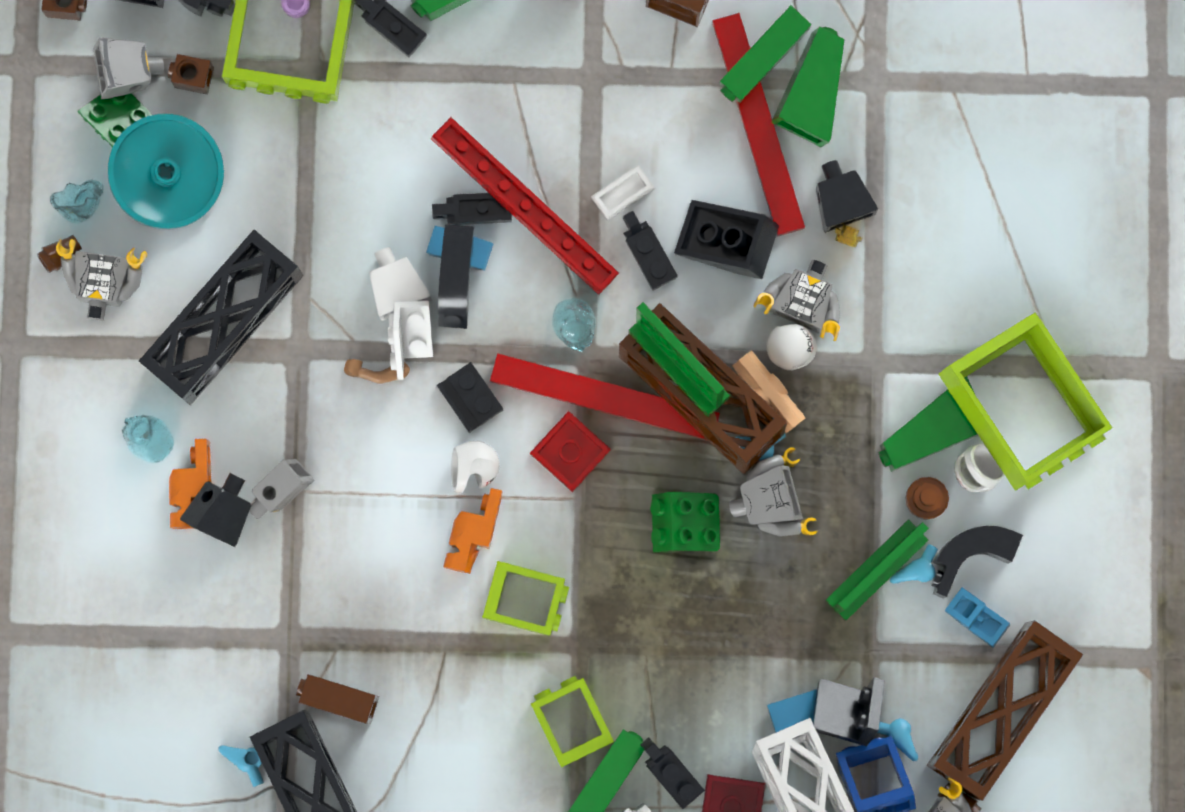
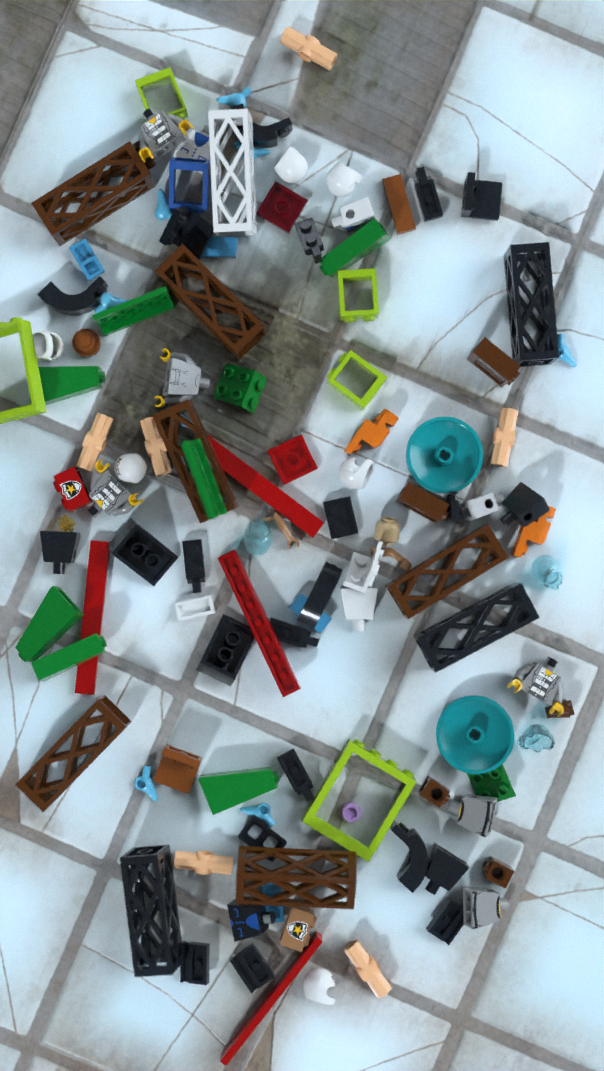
camera: 165 degrees left, 5 degrees up
(282, 602) = (504, 437): none -> light nougat piece
(291, 345) = (489, 546): none -> reddish brown piece
(316, 469) = (454, 506): none -> black plate
(358, 540) = (444, 455): none -> teal dish
(362, 459) = (423, 503): none -> reddish brown window
(397, 403) = (387, 531): none -> tan head
(544, 349) = (284, 529): none -> medium nougat piece
(554, 151) = (226, 650): none -> black slope
(756, 590) = (172, 267): none -> reddish brown piece
(856, 363) = (94, 442): none -> light nougat piece
(859, 285) = (72, 489): none -> red brick

